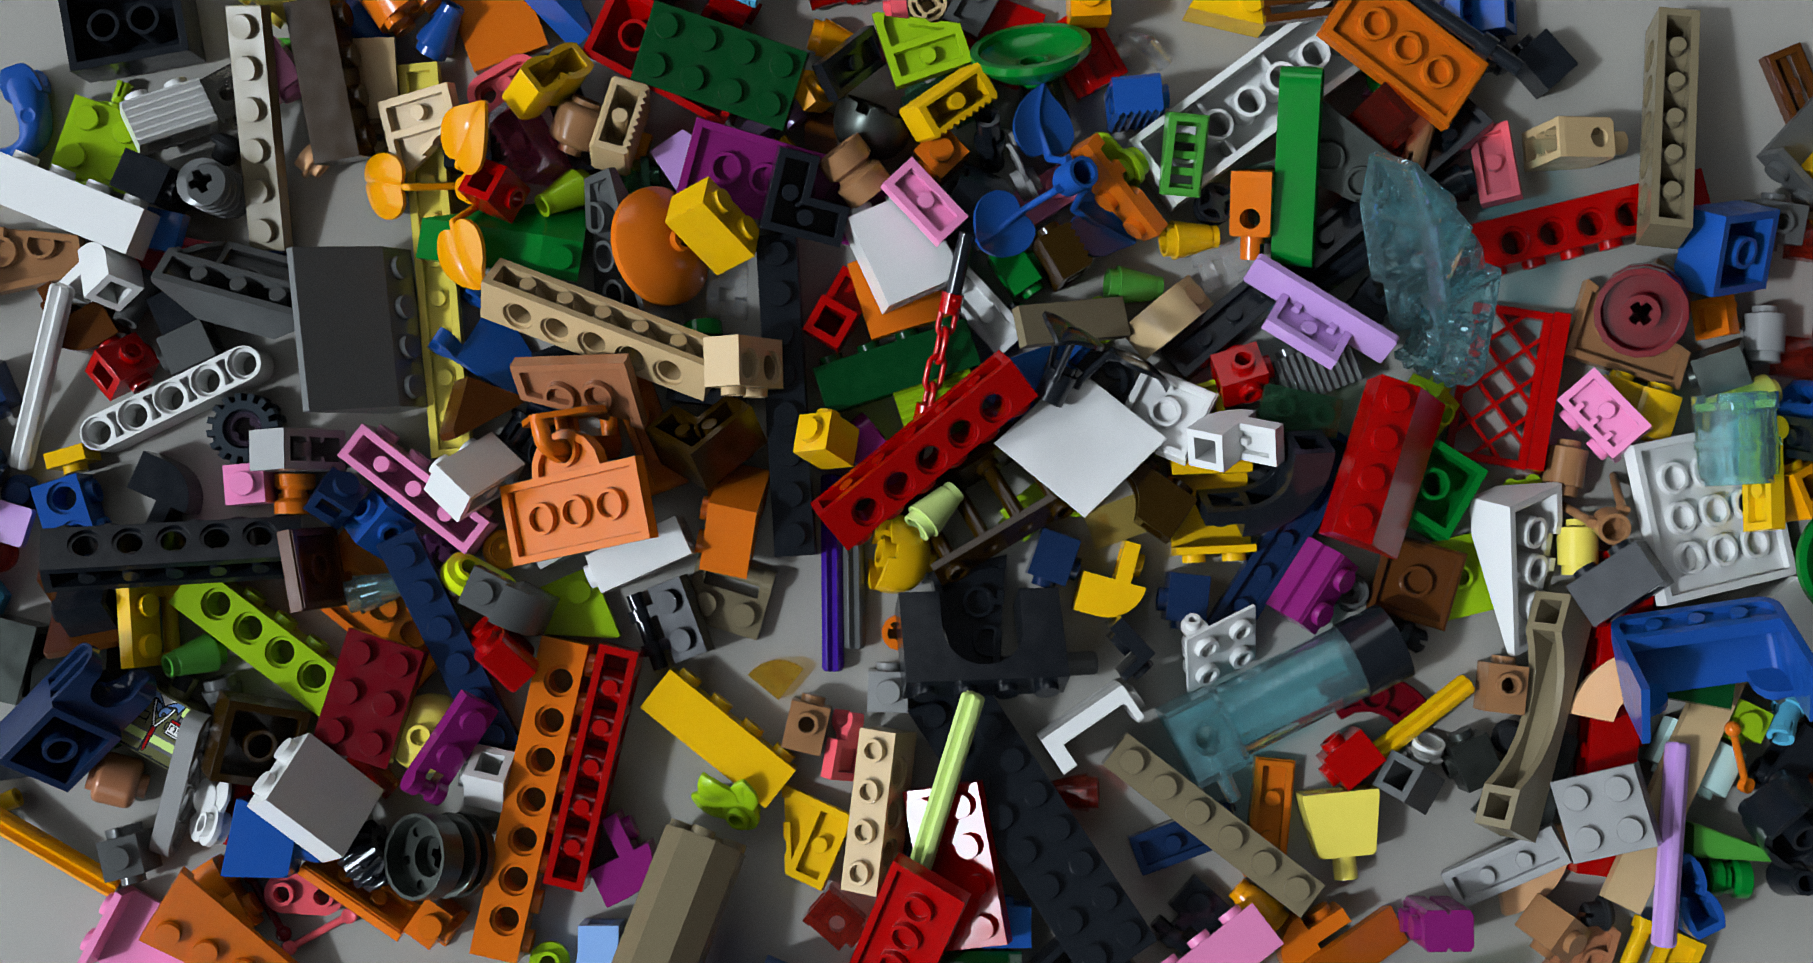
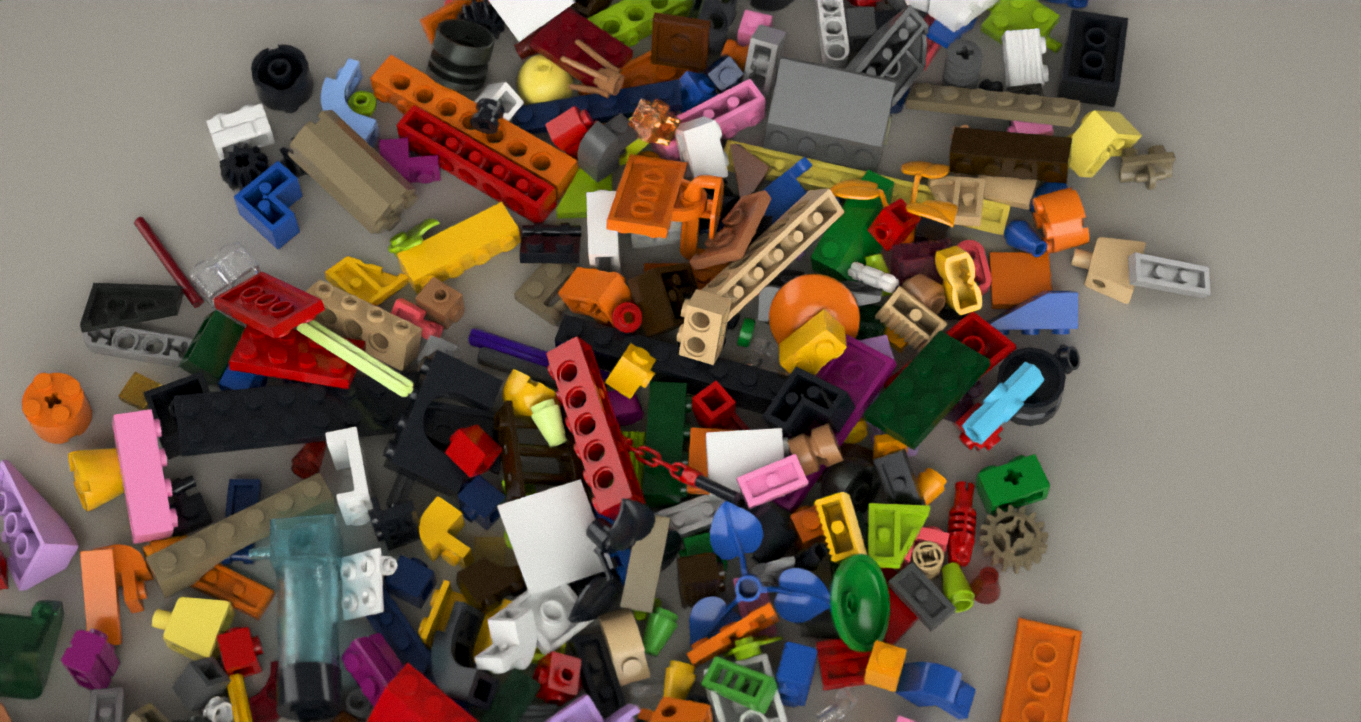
camera: 110 degrees right, 25 degrees down
(149, 181) = (983, 28): black brick -> none
(229, 416) = (801, 32): black bush -> none
(369, 592) = (652, 69): clear light blue cone -> none
(418, 638) = (608, 79): none -> medium nougat plant
(436, 922) = (418, 45): orange brick -> none
(448, 747) = (528, 82): magenta plate -> none
(464, 545) = (654, 122): none -> clear orange brick
(525, 776) = (487, 116): none -> black wheel
(579, 191) = (873, 277): none -> white axle
(753, 481) = (618, 317): none -> red plate
(776, 675) = (484, 300): clear yellow tile -> none
(830, 904) = (302, 272): clear red brick -> none
(1006, 588) = (473, 450): none -> red brick

